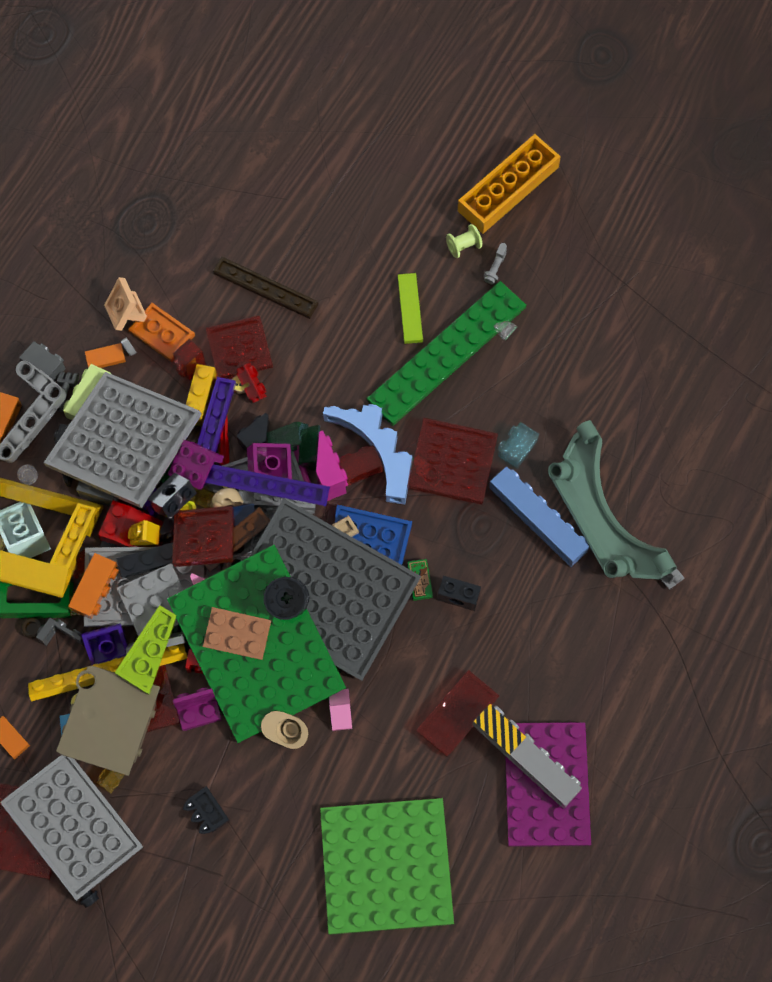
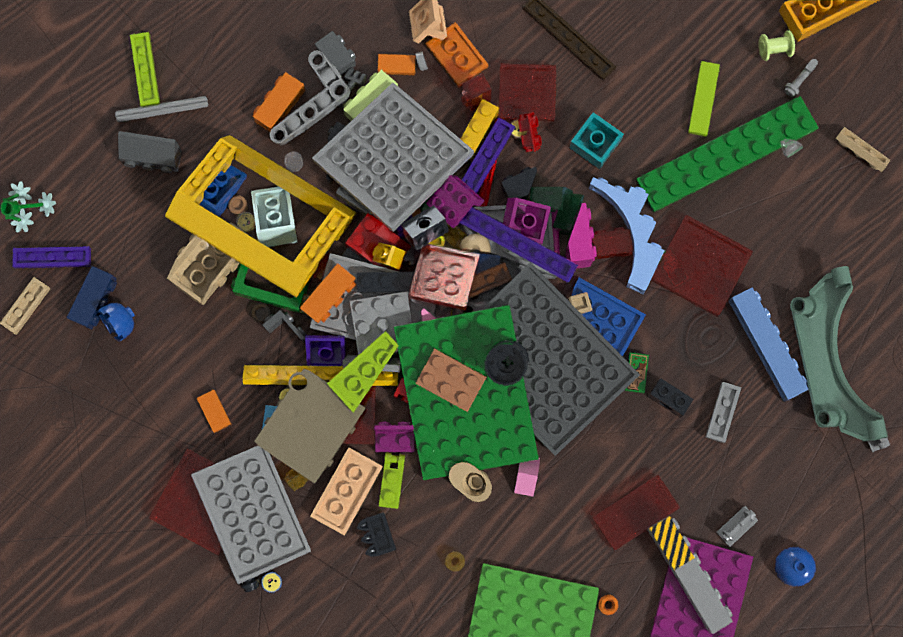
camera: 15 degrees right, 10 degrees up
(111, 890) = (272, 582): none -> light yellow tile
(163, 777) = (346, 491): none -> light nougat plate
(207, 754) = (392, 481): none -> lime plate
(291, 808) = (450, 556): none -> clear yellow plate
(317, 373) = (596, 140): none -> teal brick
(456, 805) = (614, 602): none -> orange plate
(515, 593) = (723, 412): none -> light grey plate
(518, 444) = (769, 268): clear light blue brick -> none
(561, 697) = (737, 526): none -> light grey hinge
(573, 313) = (862, 149): none -> tan plate
(629, 720) = (795, 566): none -> blue cylinder

